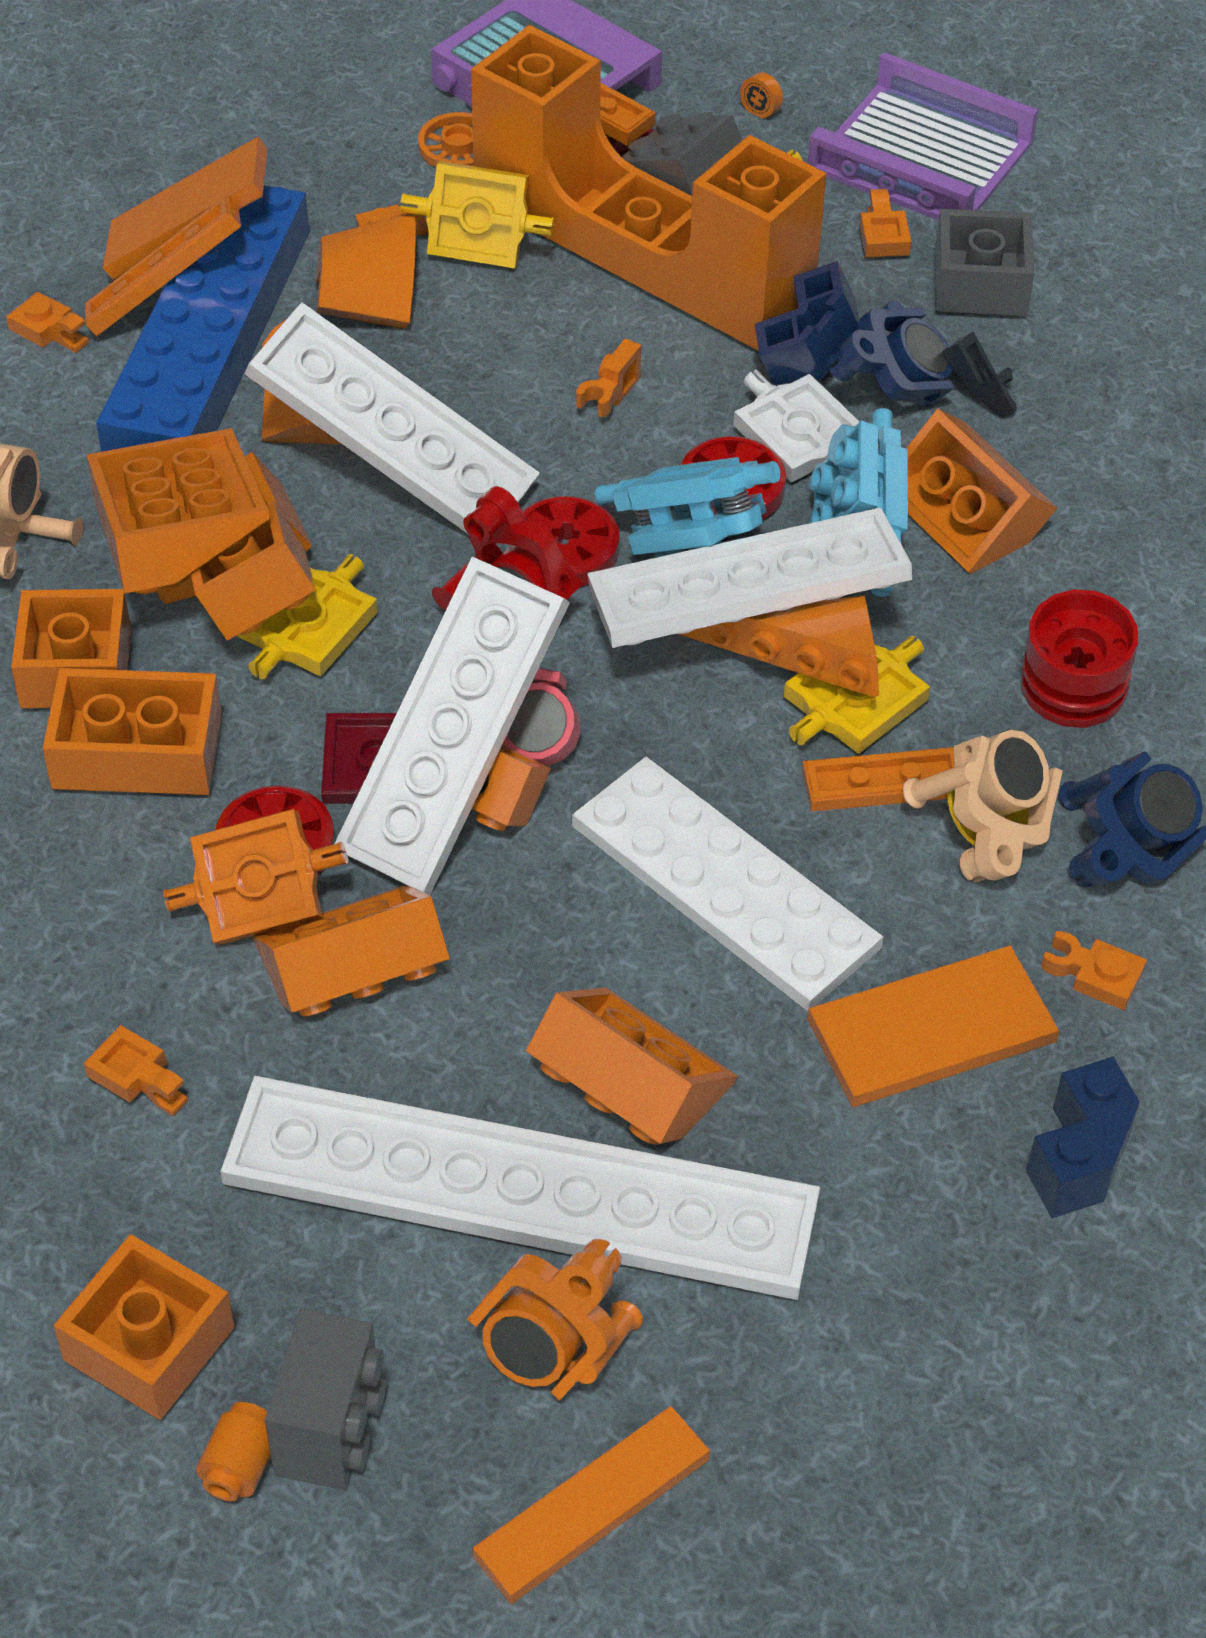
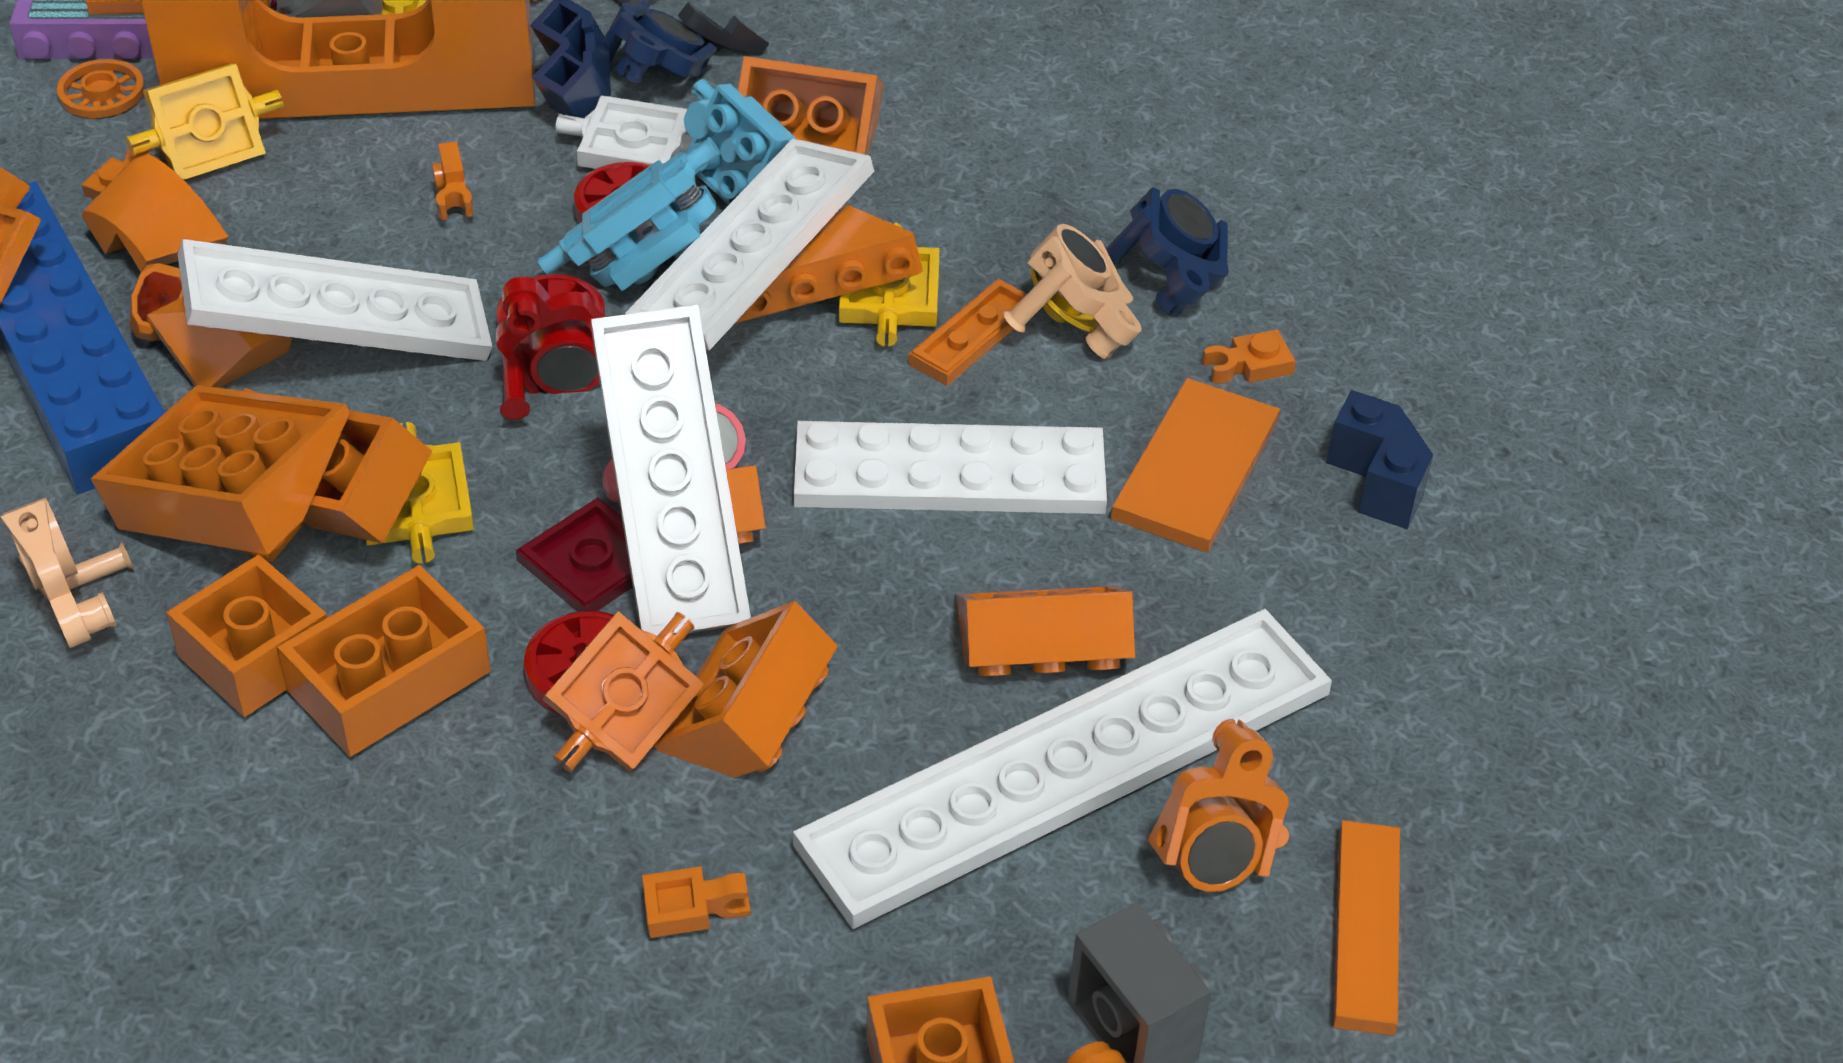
camera: 45 degrees left, 5 degrees down
(1079, 658) = (1022, 165): red wheel -> none

